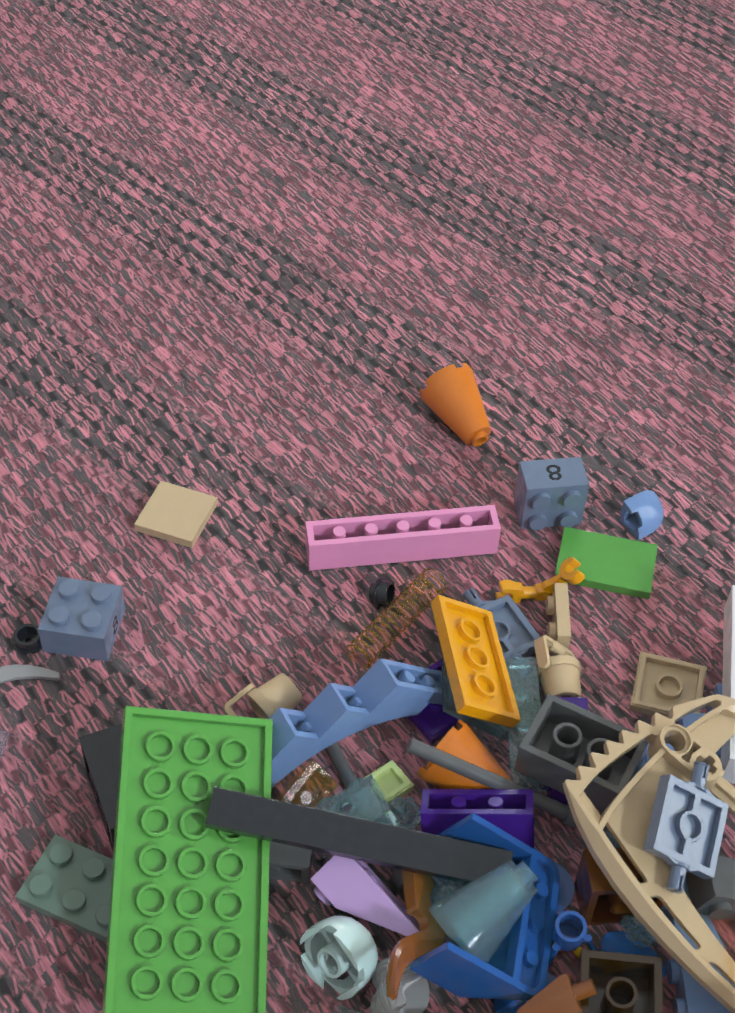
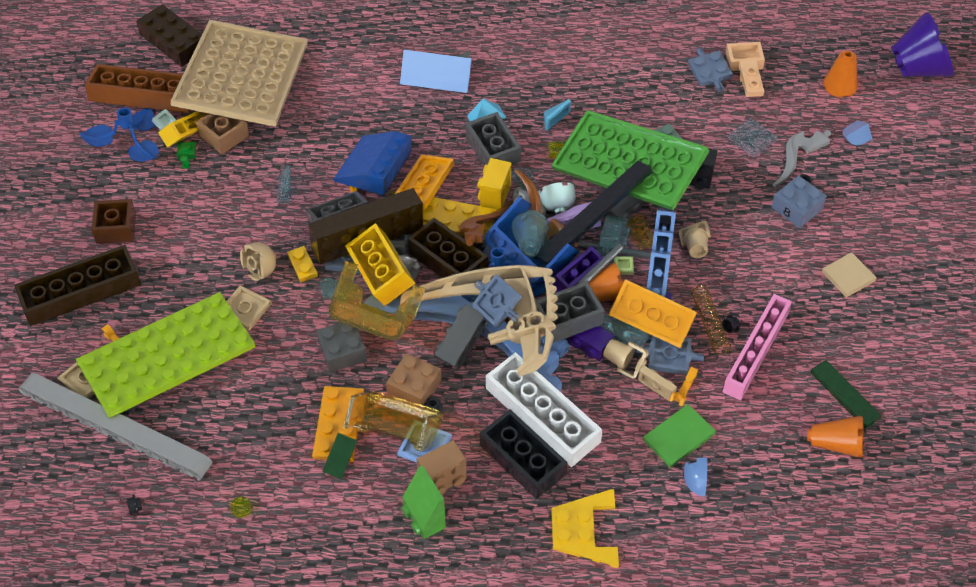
camera: 130 degrees right, 5 degrees up
(381, 439) = (845, 393): none -> dark green tile
(551, 493) = (736, 426): sand blue brick -> none
(665, 683) = (589, 400): tan tile -> none

